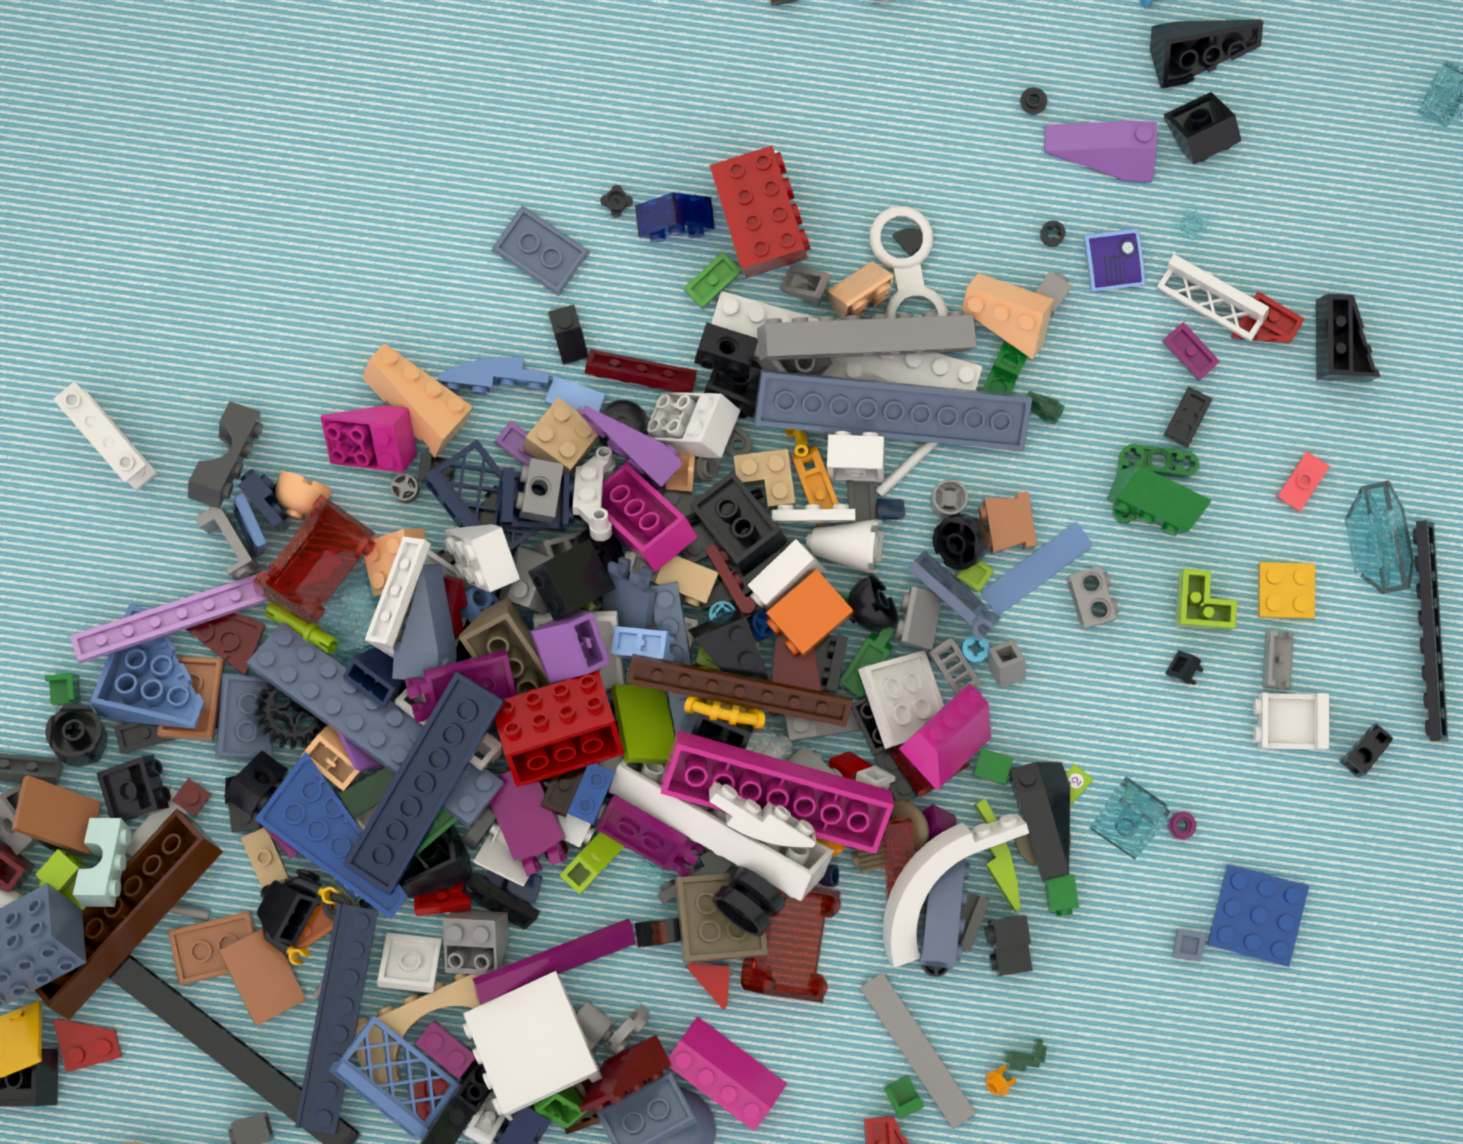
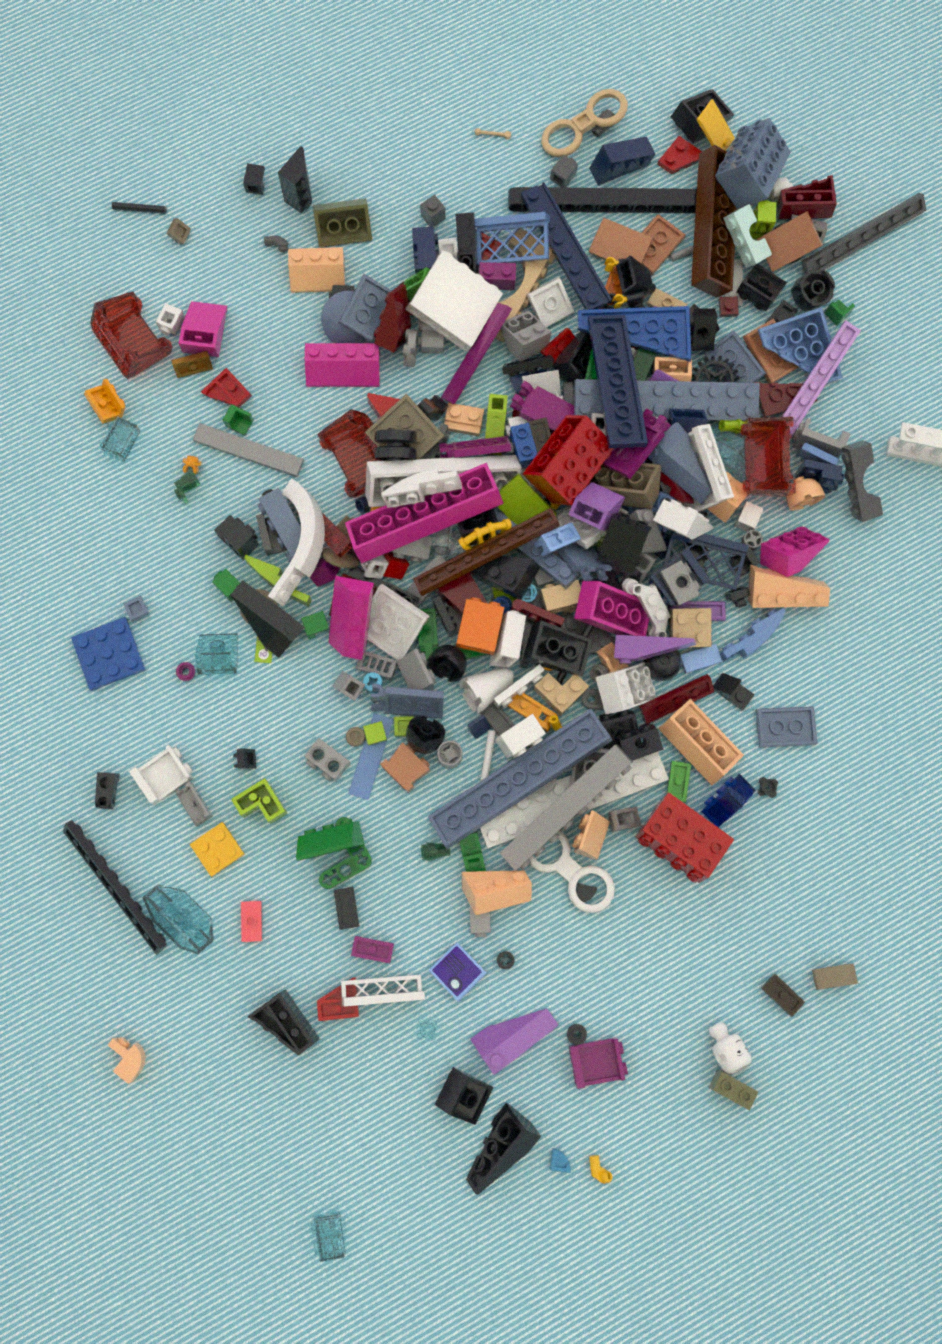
camera: 145 degrees right, 5 degrees down
(165, 1090) = (621, 158): none -> dark blue wedge
(386, 517) = (749, 517): none -> white panel
(470, 434) = (738, 596): none -> black tile
(627, 894) = (464, 419): none -> light nougat plate
(652, 303) = (701, 742): none -> light nougat slope
(1014, 589) = (375, 733): none -> lime tile
(1033, 56) = (597, 1062): none -> magenta panel
(1039, 603) = (355, 736): none -> dark tan tile

